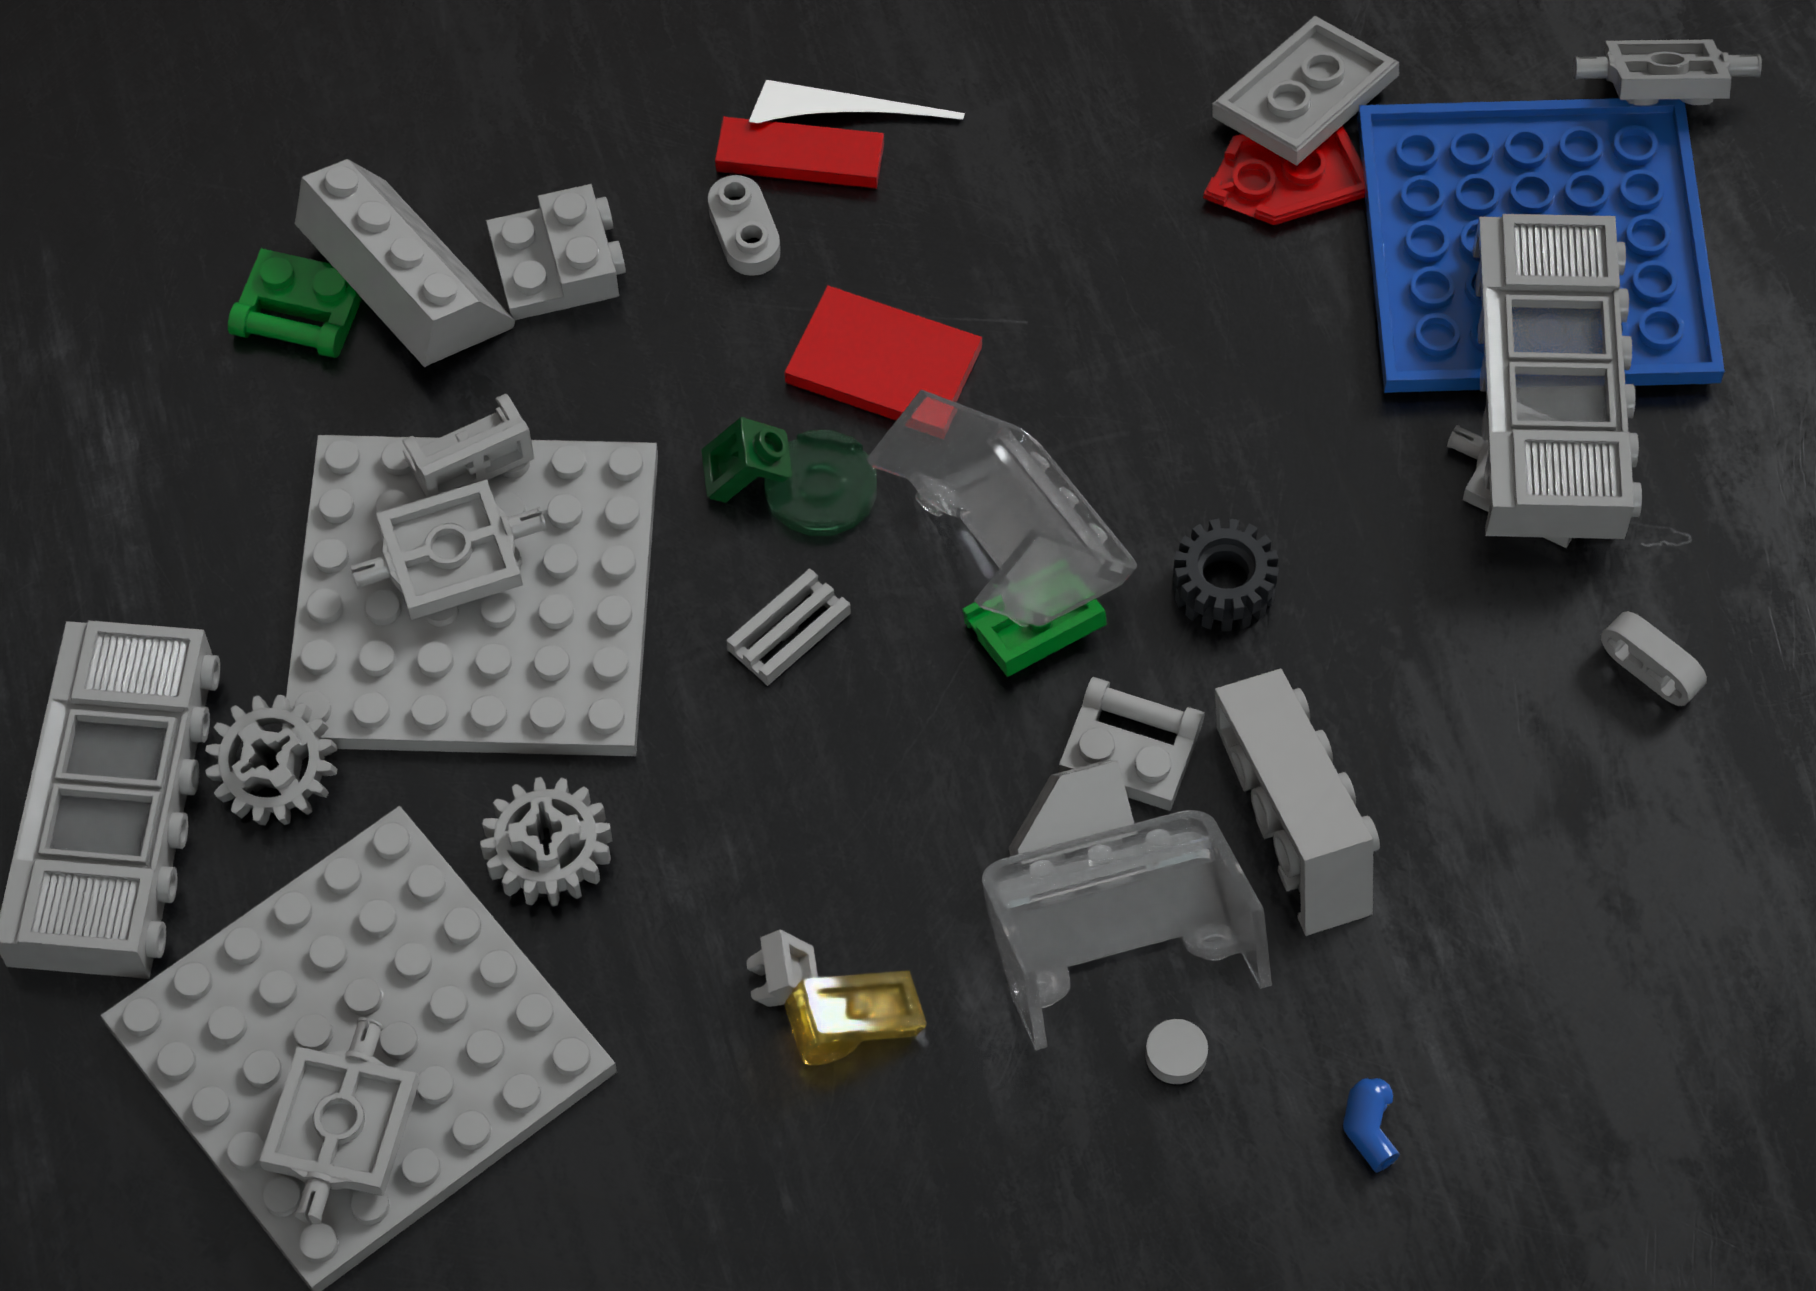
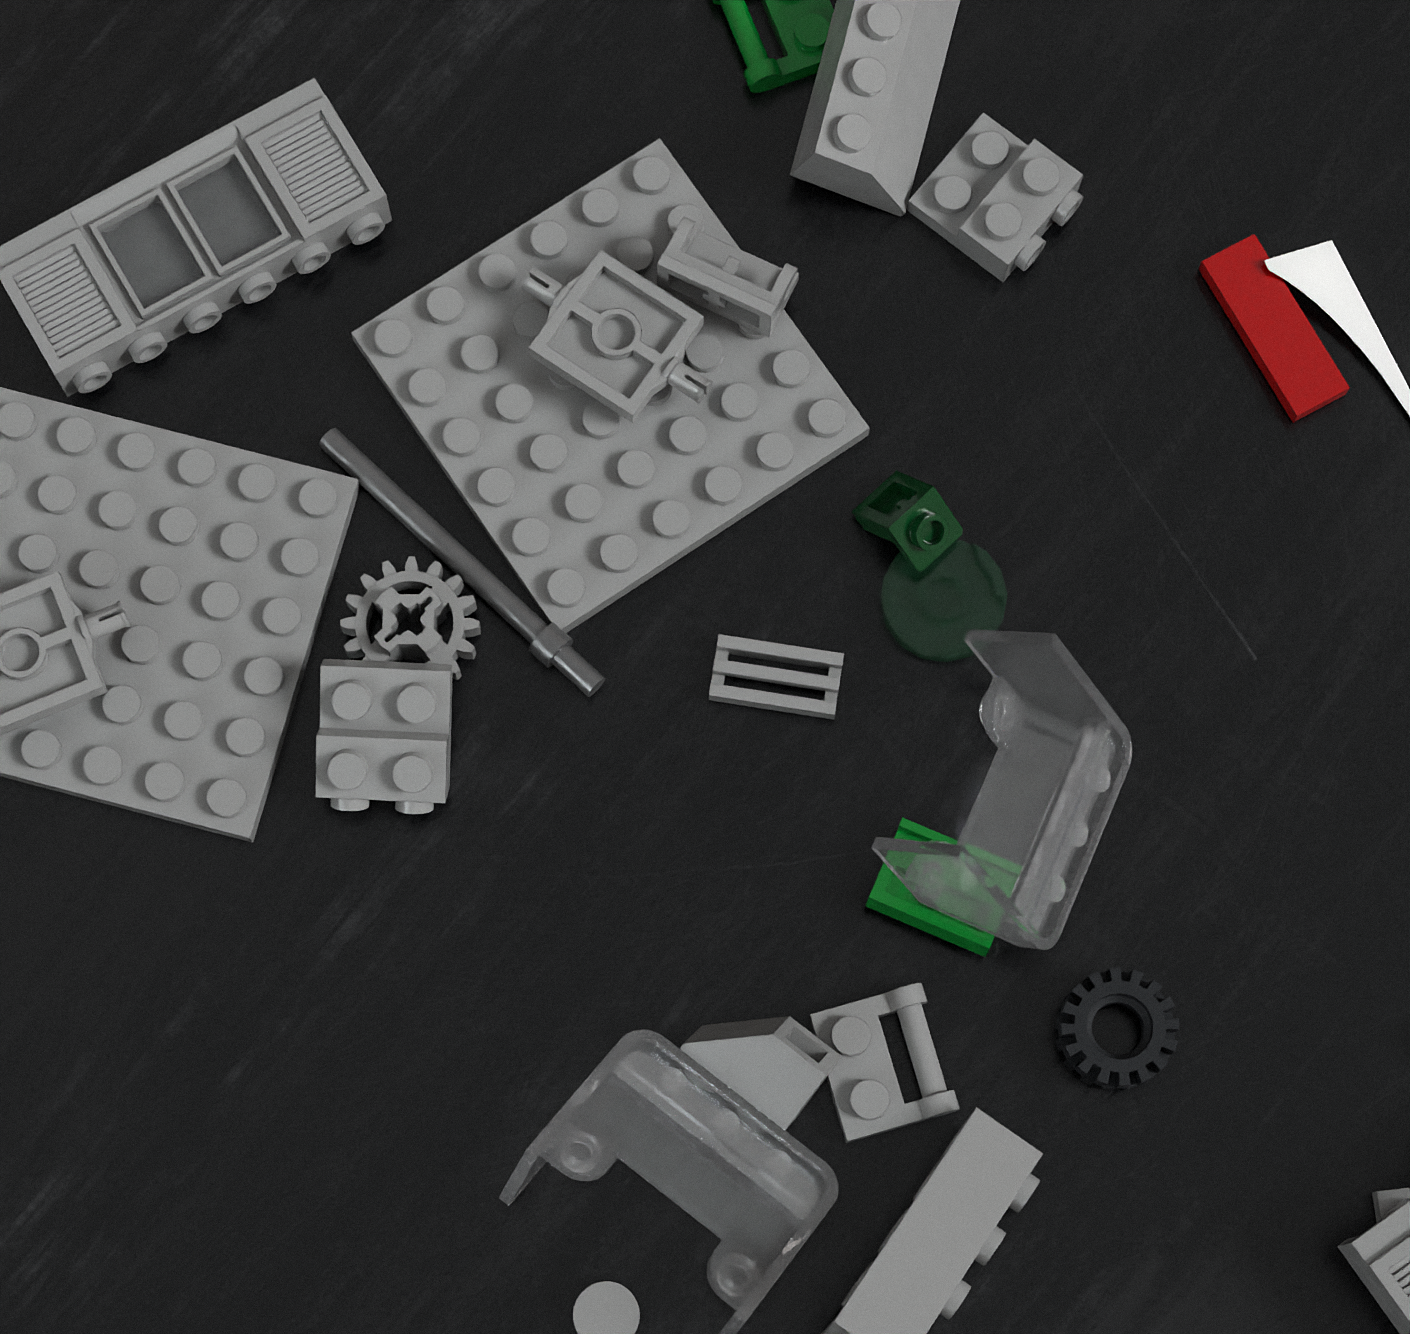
camera: 50 degrees right, 15 degrees up
(251, 770) = (312, 315): light grey gear -> none
(616, 908) = (384, 734): none -> light grey plate
(637, 759) = (547, 642): none -> flat silver bar
(741, 221) = (1160, 333): light grey plate -> none
(785, 963) = (436, 922): light grey tile -> none
(841, 1011) = (436, 1009): clear yellow plate -> none
(879, 355) = (1111, 561): red tile -> none

